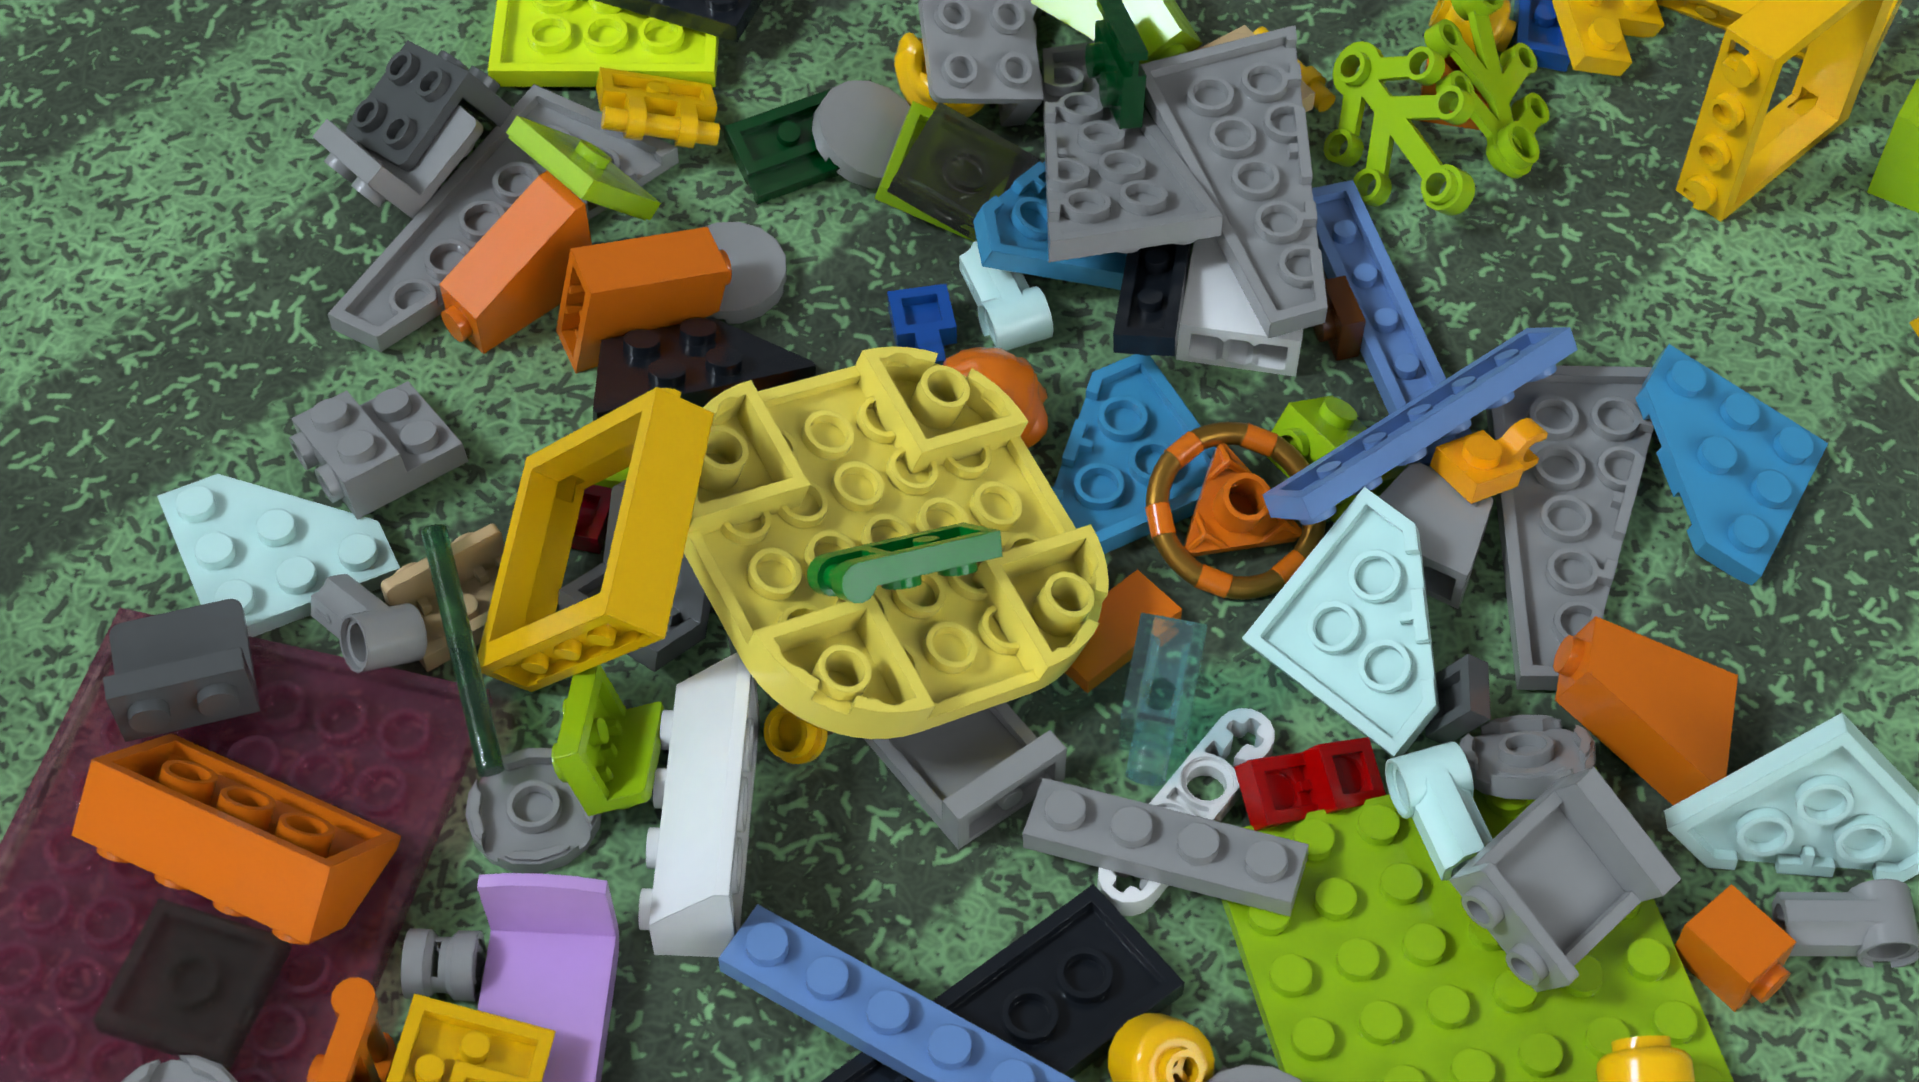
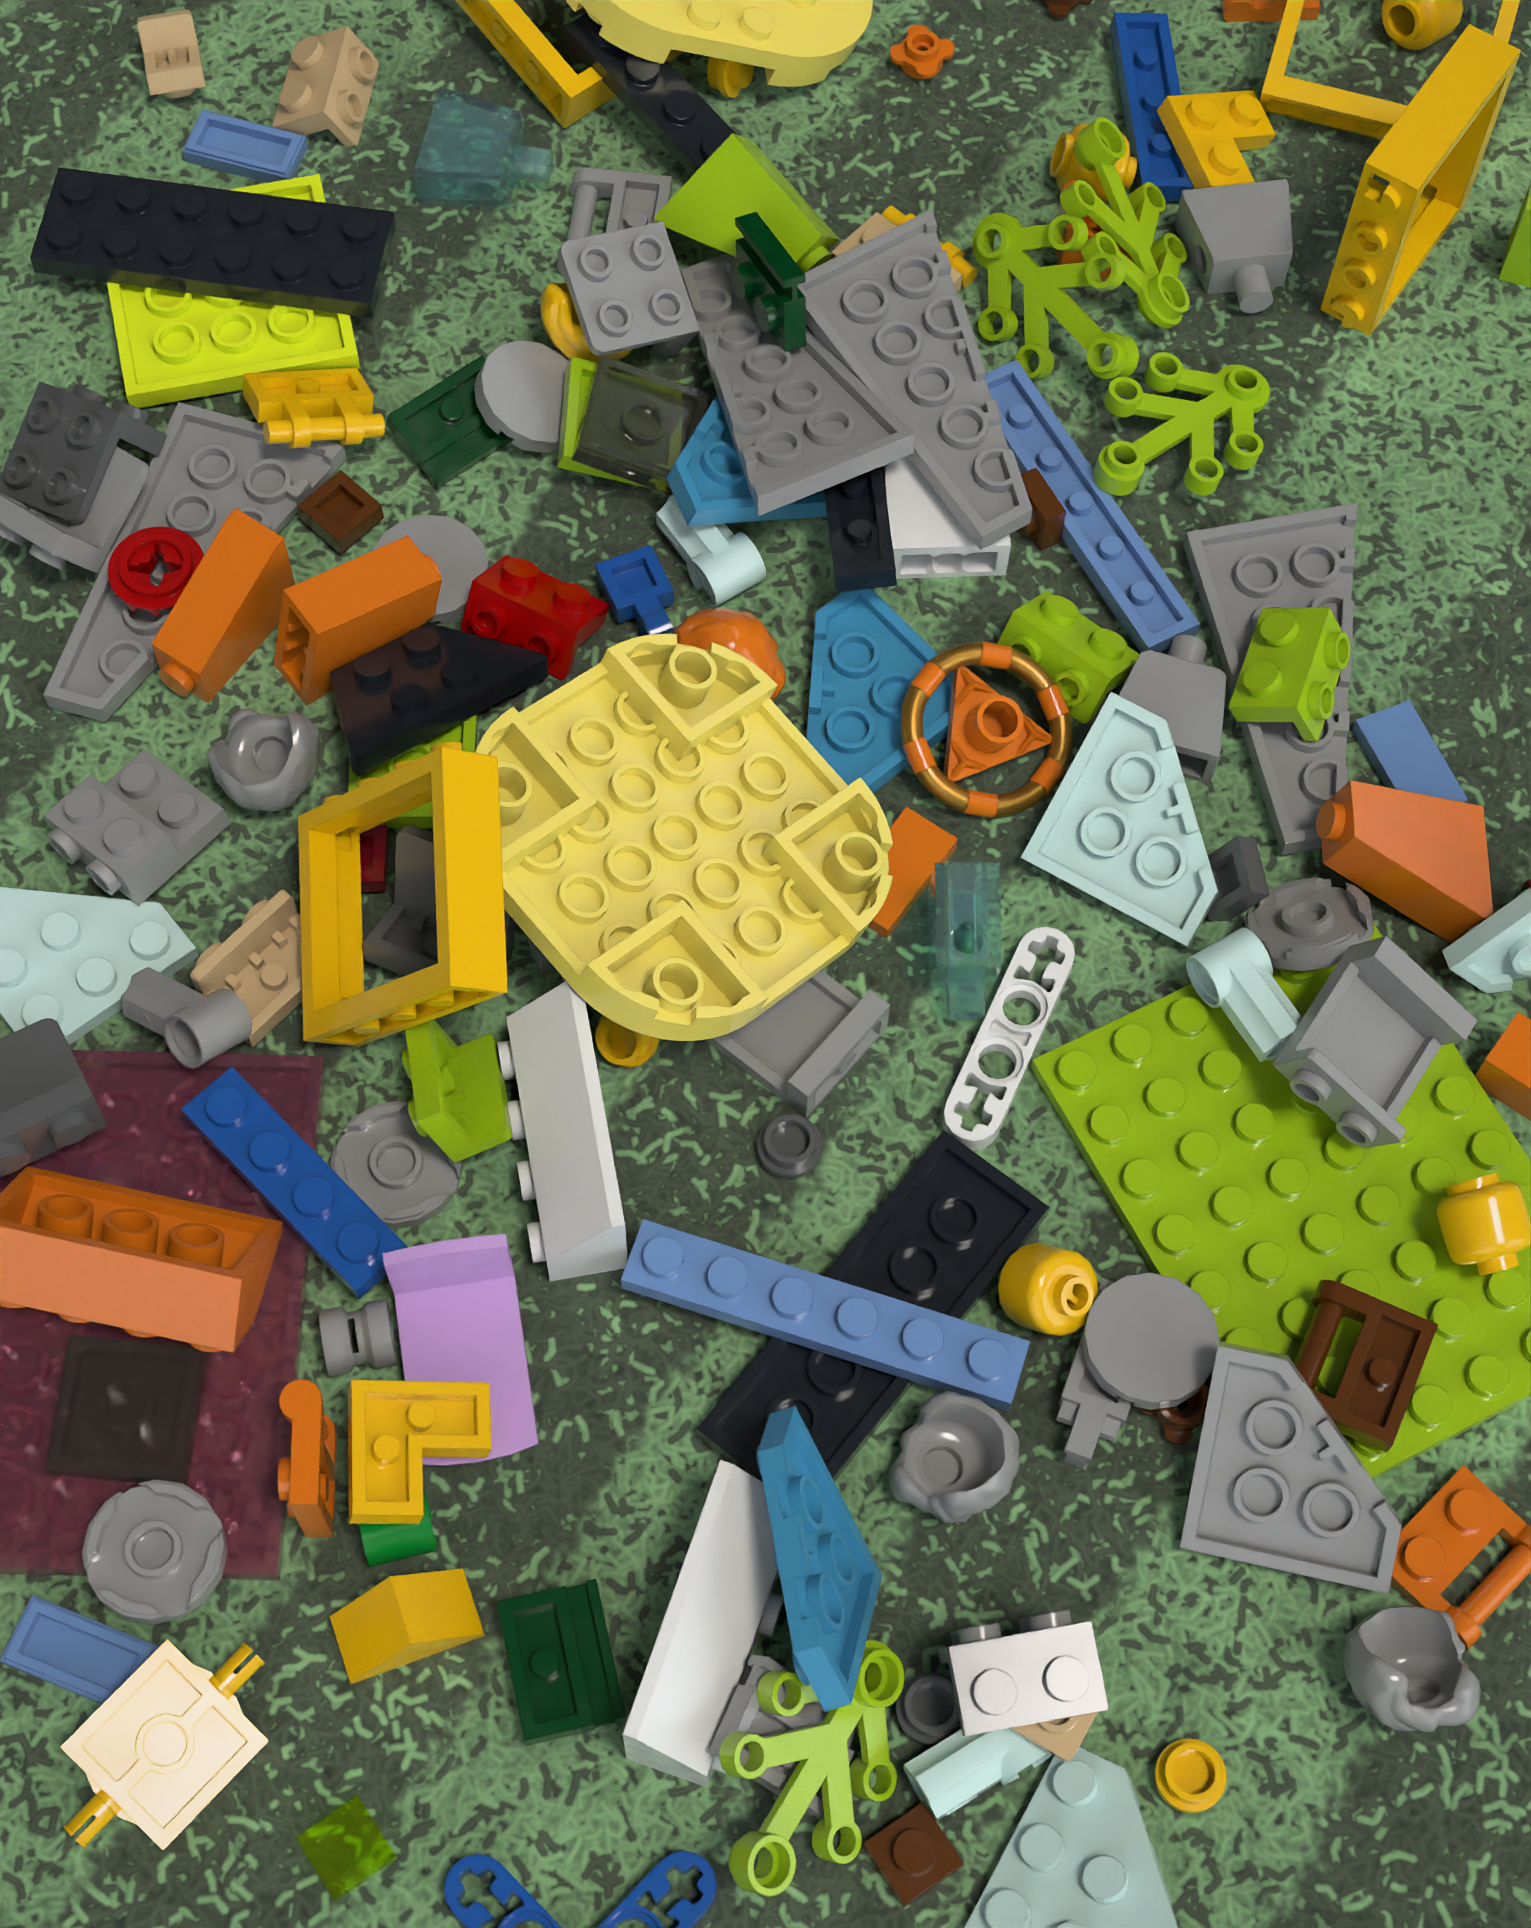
camera: 15 degrees left, 10 degrees up
(421, 796) = (293, 1180): none -> blue plate
(452, 208) = (136, 559): none -> red gear
(462, 651) = (289, 1024): clear green bar -> none
(517, 407) = (266, 759): none -> light grey hair
(582, 168) = (264, 495): lime plate -> none
(676, 206) = (340, 511): none -> reddish brown plate
(814, 321) = (533, 611): none -> red bracket
(902, 560) = (703, 859): green plate -> none
(932, 870) = (789, 1146): none -> dark grey plate
(1166, 846) = (1002, 1080): light grey plate -> none
(1322, 777) = (1115, 987): red slope -> none
(1406, 433) = (1144, 613): medium blue plate -> none
(1485, 466) = (1212, 642): light orange plate -> none
(1564, 507) = (1292, 669): none -> lime bracket
(1567, 247) = (1232, 392): none -> lime plant
(1603, 109) = (1238, 239): none -> light grey torso
(1669, 611) = (1406, 753): none -> medium blue tile
(1728, 461) = (1428, 587): dark azure plate -> none

